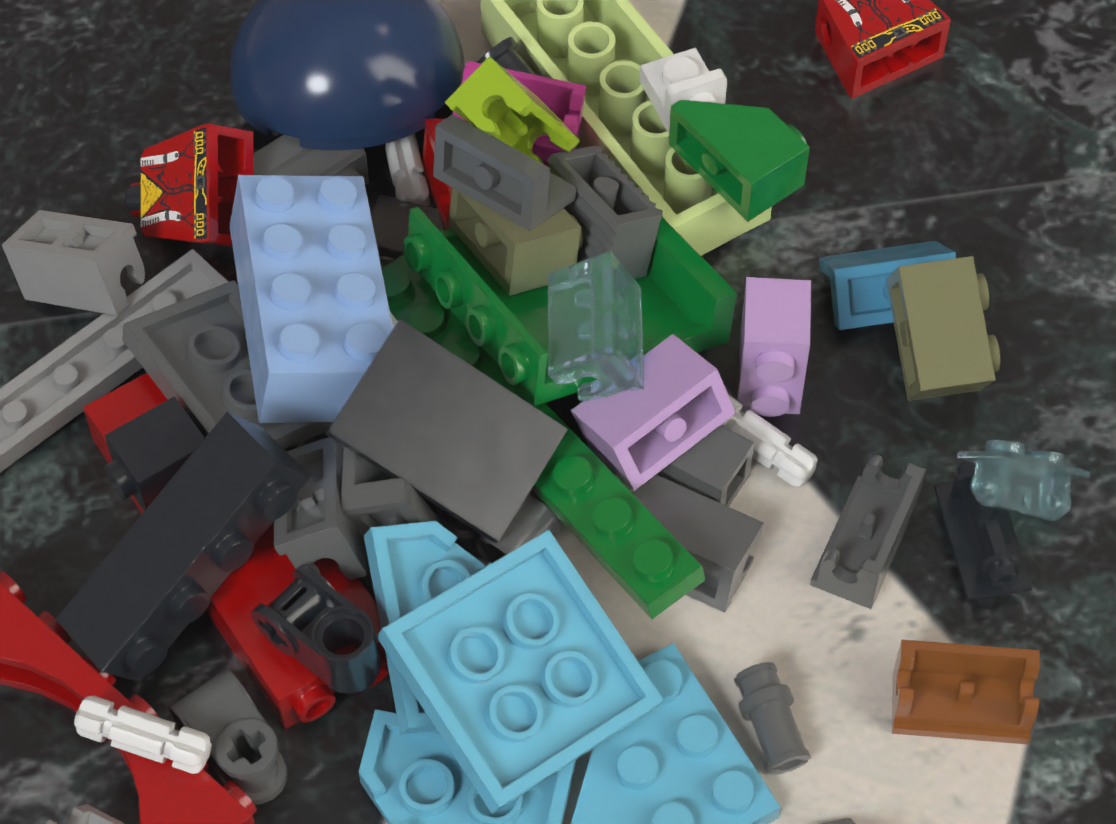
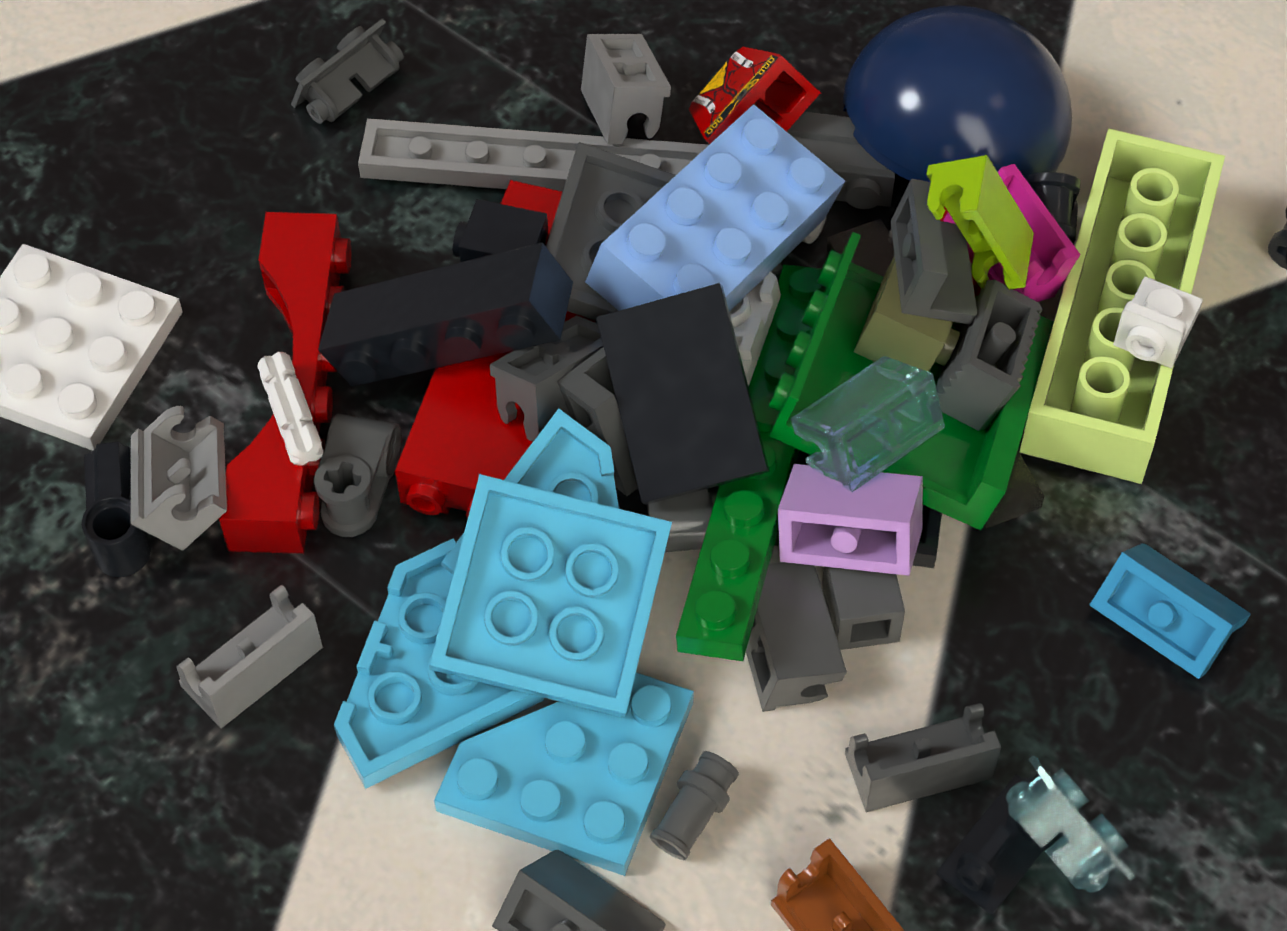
camera: 50 degrees right, 0 degrees up
(314, 621) = (461, 442): black piece -> none
(740, 152) = (1138, 402): green slope -> none
(772, 446) = (931, 623): white axle -> none
(774, 345) = (1004, 561): lavender brick -> none
(942, 328) = (1153, 669): olive brick -> none

